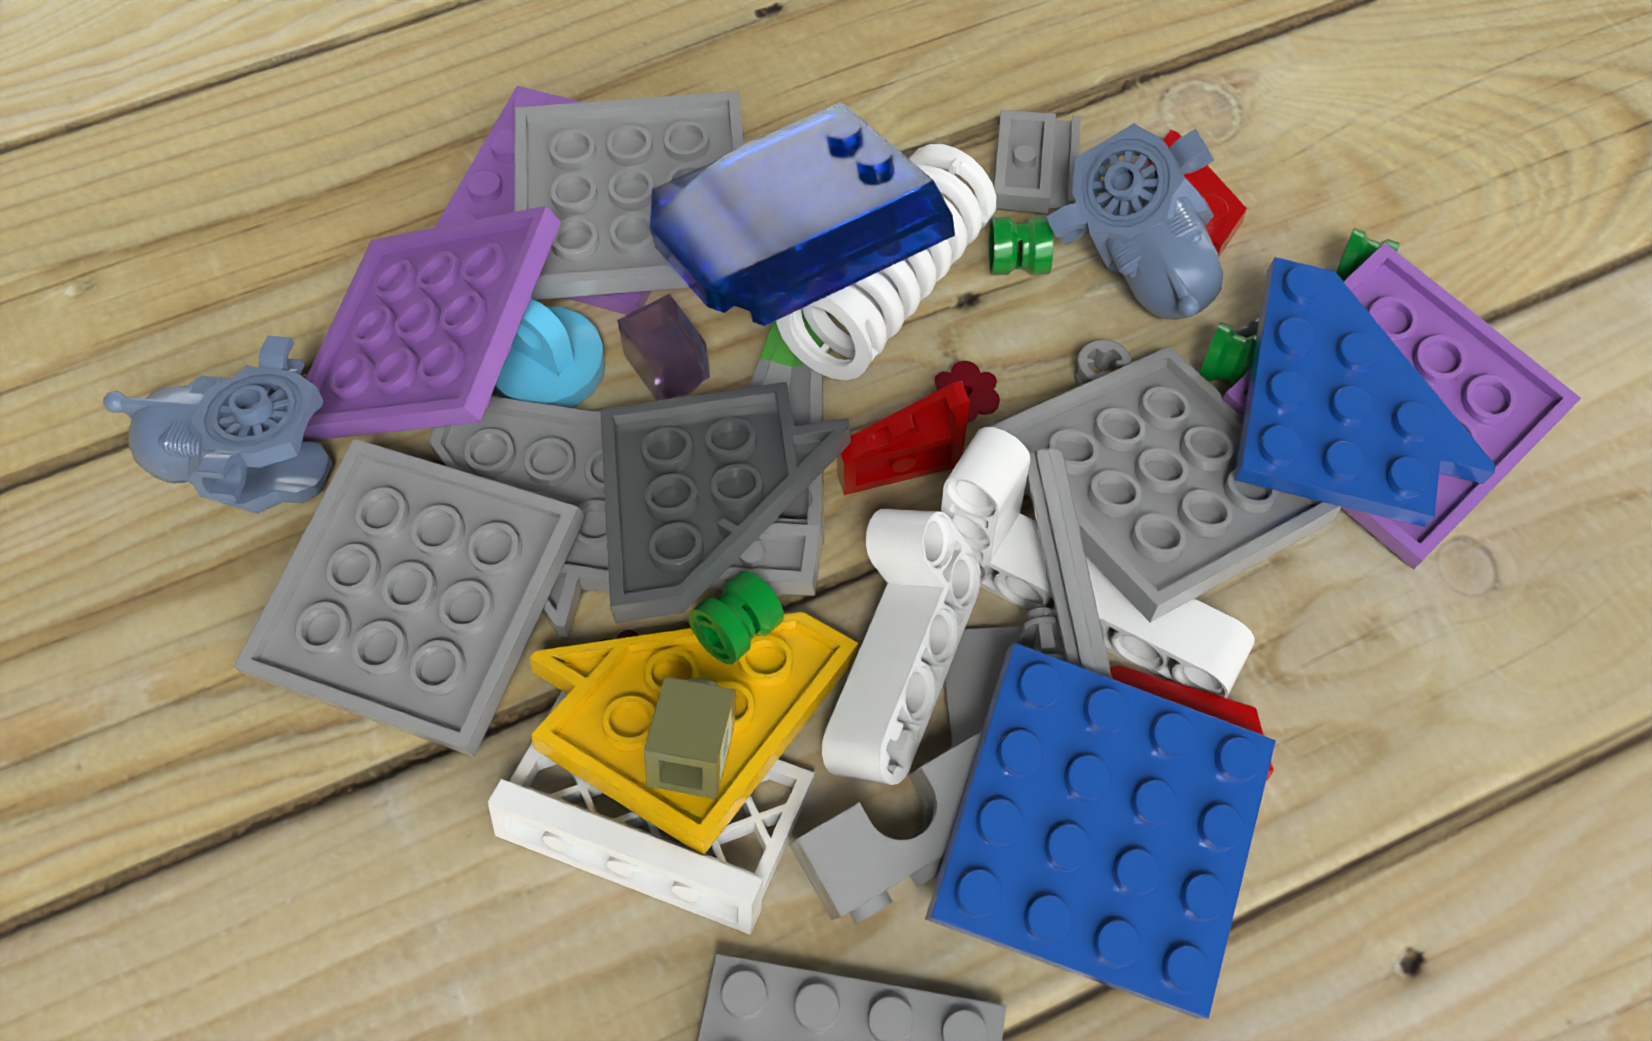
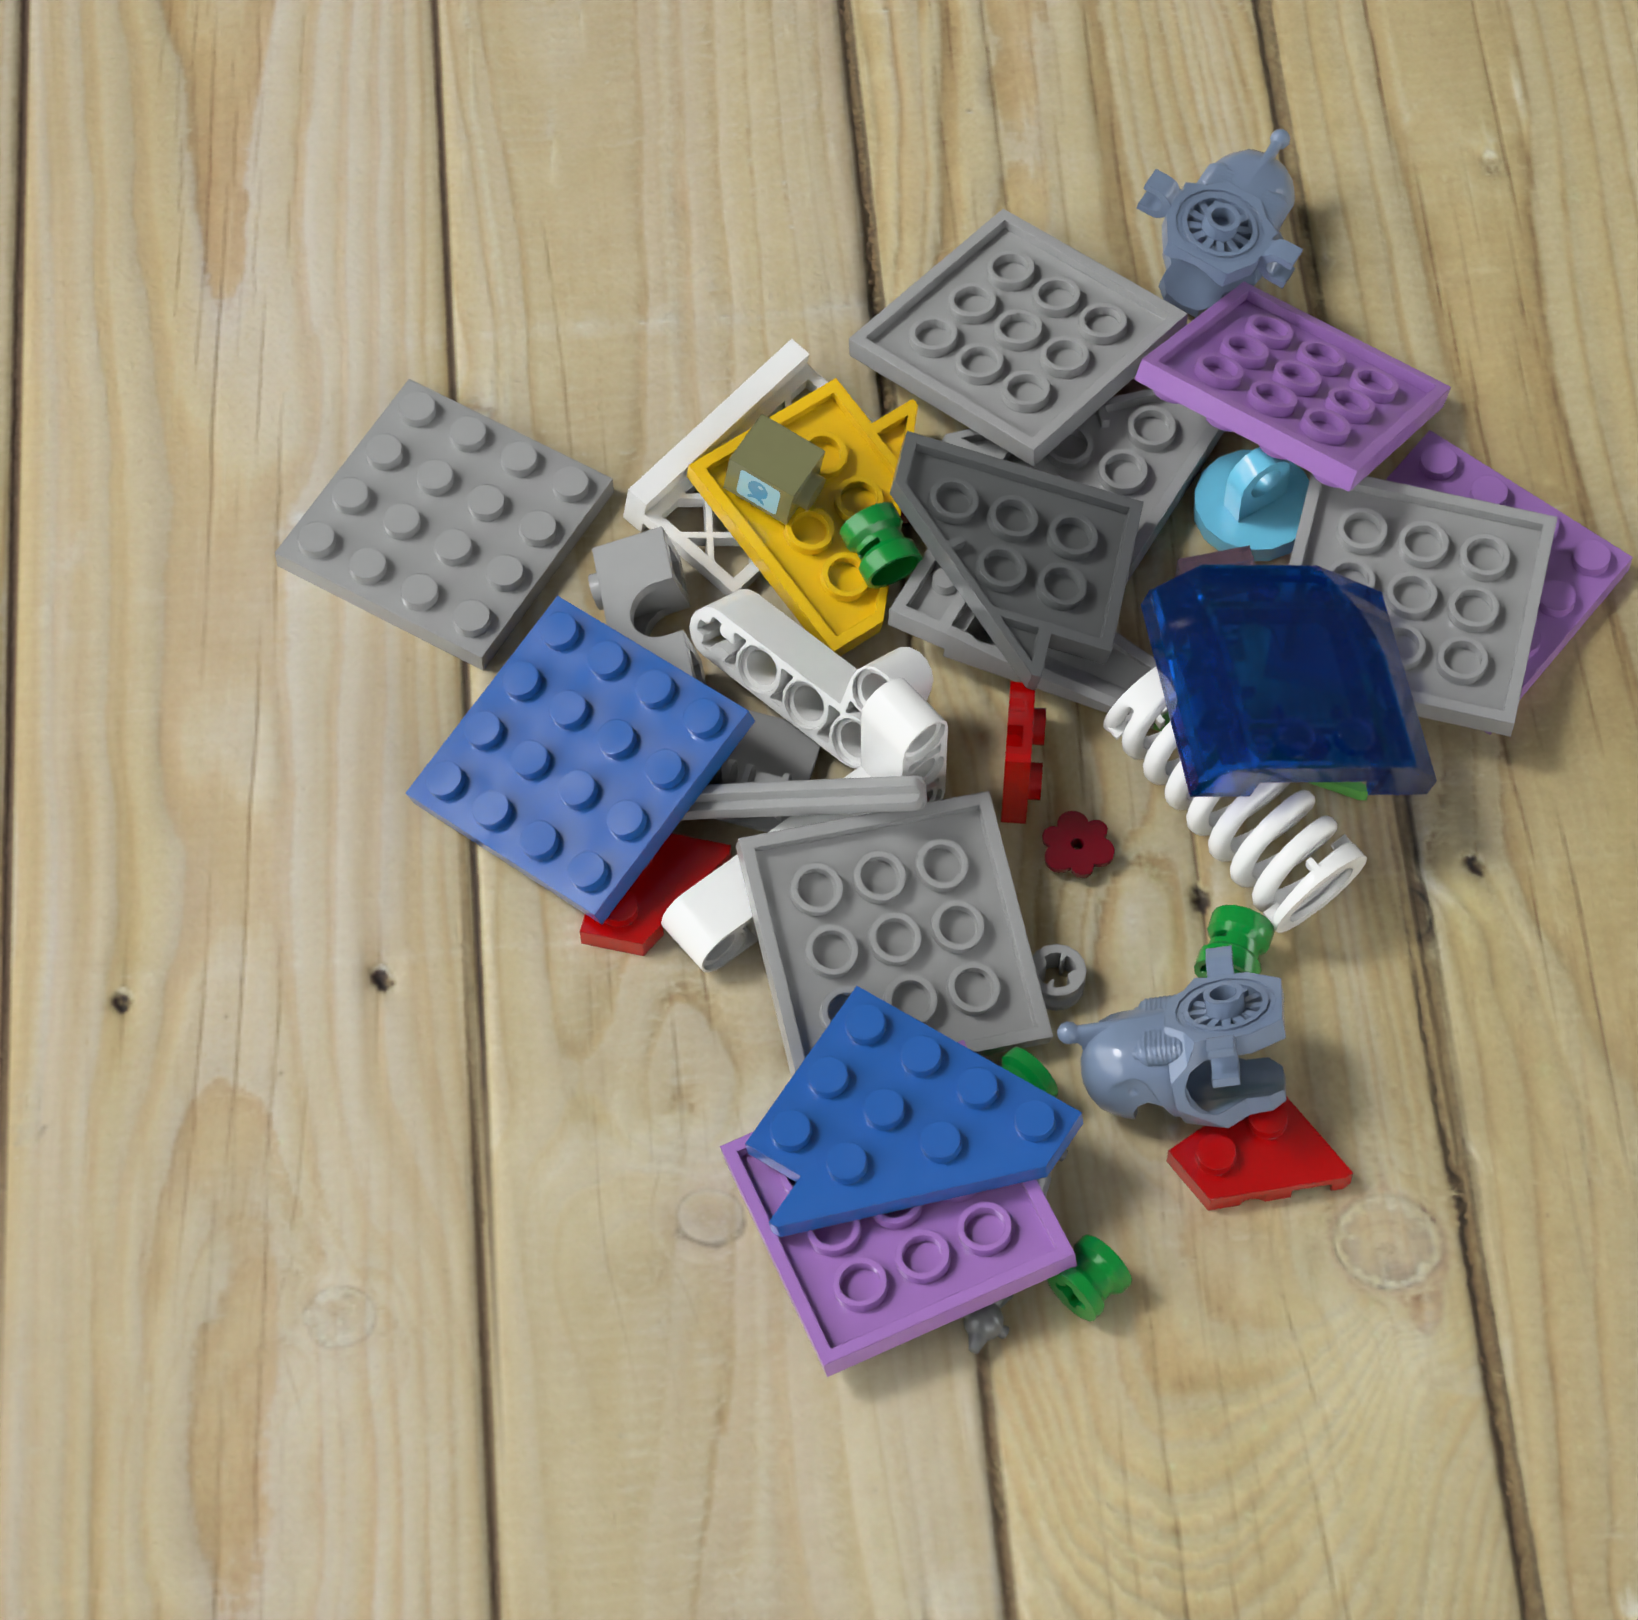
camera: 110 degrees right, 0 degrees up
(1035, 161) = (1353, 1016): light grey plate -> none

